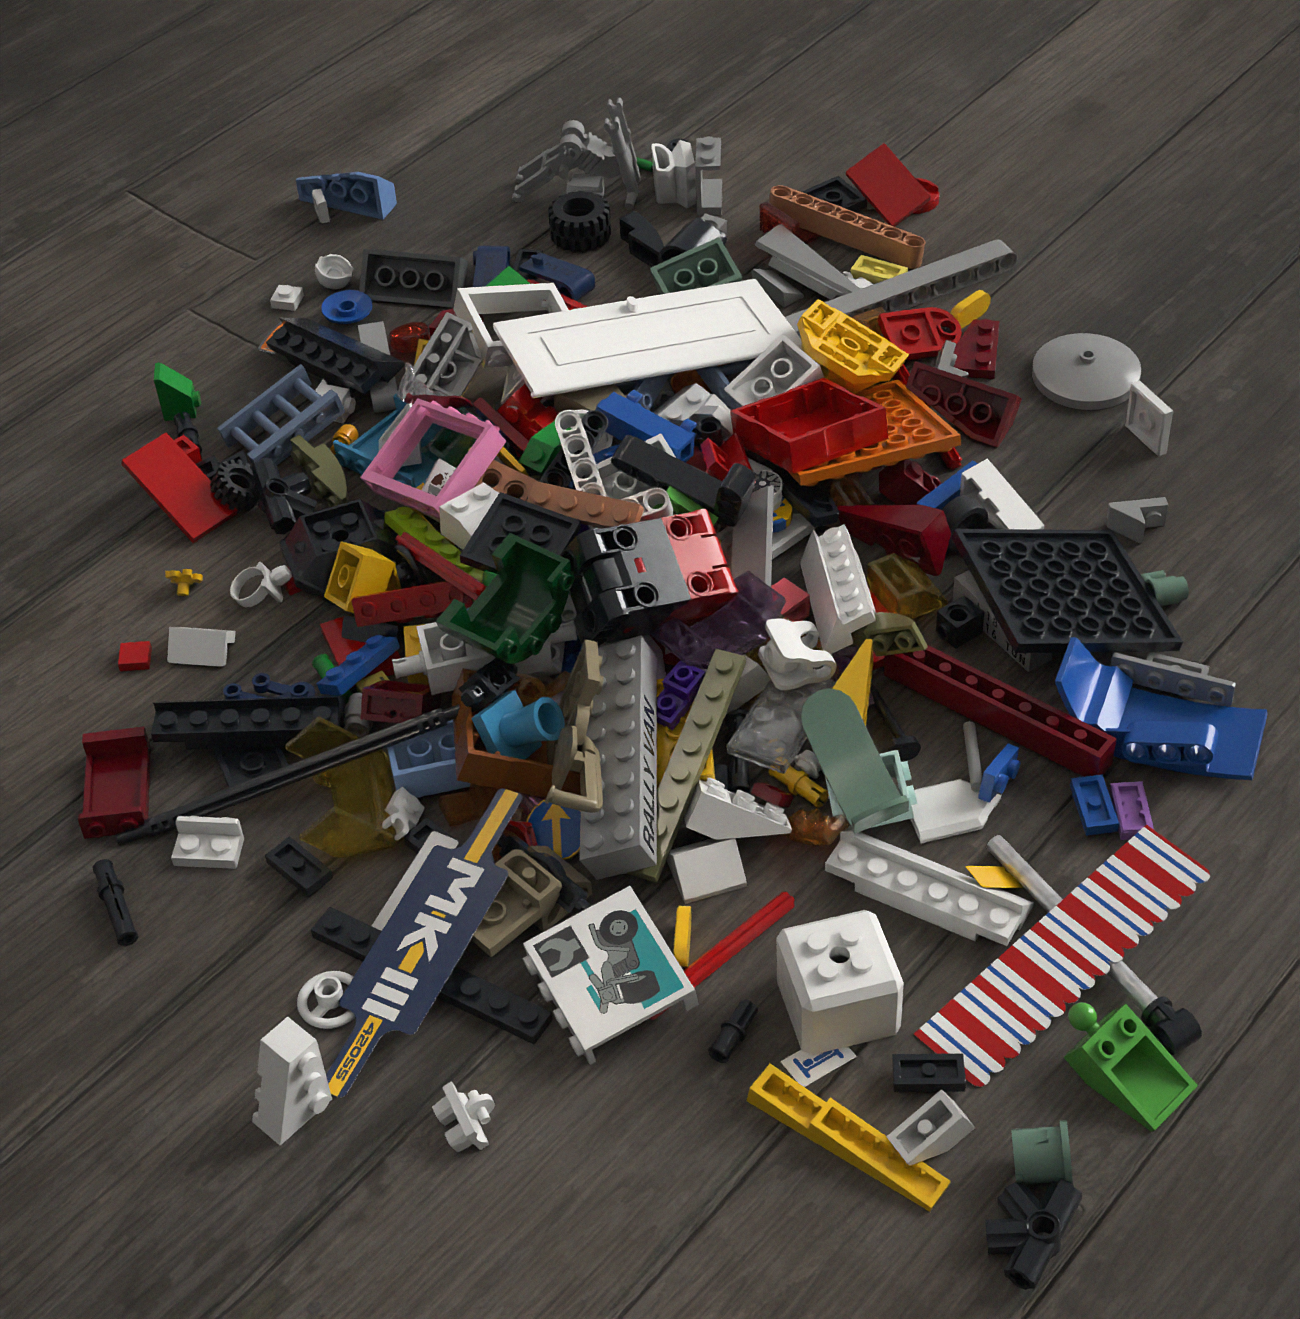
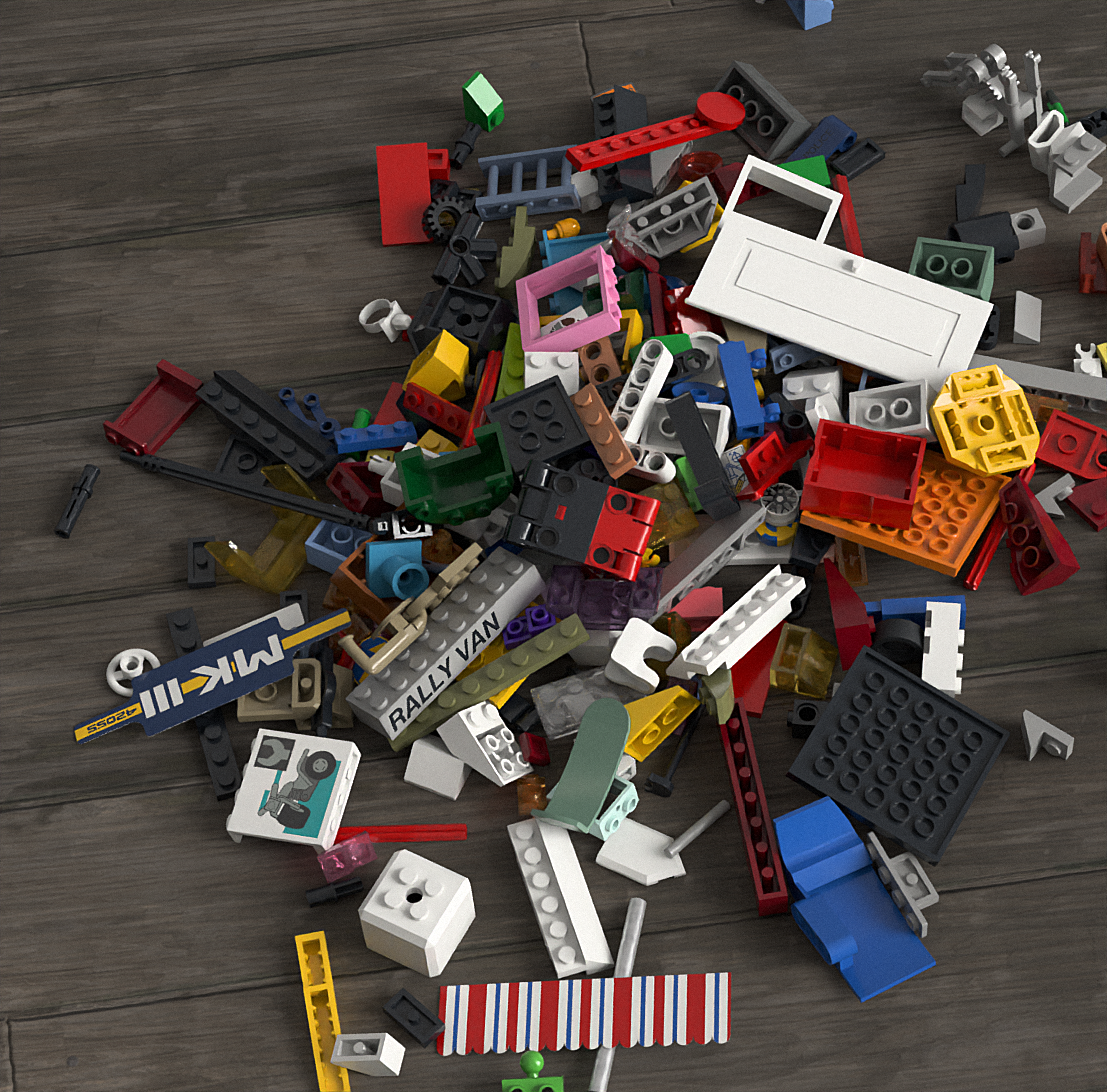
camera: 45 degrees right, 10 degrees up
(134, 656) = (259, 316): red tile -> none
(183, 580) = (342, 277): yellow plant -> none
(199, 646) = (304, 338): white panel -> none
(208, 842) = (167, 501): white bracket -> none
(286, 297) = (655, 62): white plate -> none
(291, 1083) = (46, 710): white wedge -> none
(333, 271) = (706, 62): white hair -> none
(346, 306) = (678, 101): blue dish -> none
(359, 327) = (638, 142): none -> red plate
(389, 286) = (720, 110): none -> red tile
(403, 812) = (297, 574): white plate -> none
(457, 1106) = (127, 814): white hips -> none
(567, 277) = (867, 188): dark blue door -> none
(579, 221) = (937, 128): black tyre -> none
(682, 935) = (370, 803): yellow tile -> none
(716, 989) = (347, 856): none -> clear pink slope
(799, 783) = (562, 753): yellow pin -> none
(803, 264) = (1061, 315): light grey wedge -> none
(809, 1068) = (355, 953): white sticker -> none
(906, 482) = (907, 578): dark red slope -> none
(993, 877) = (602, 924): yellow sticker -> none
(999, 772) = (692, 855): blue plate -> none
(1094, 805) = (733, 930): blue plate -> none
(1130, 808) = (753, 955): medium lavender plate -> none
(1166, 589) = (986, 812): sand green piece -> none

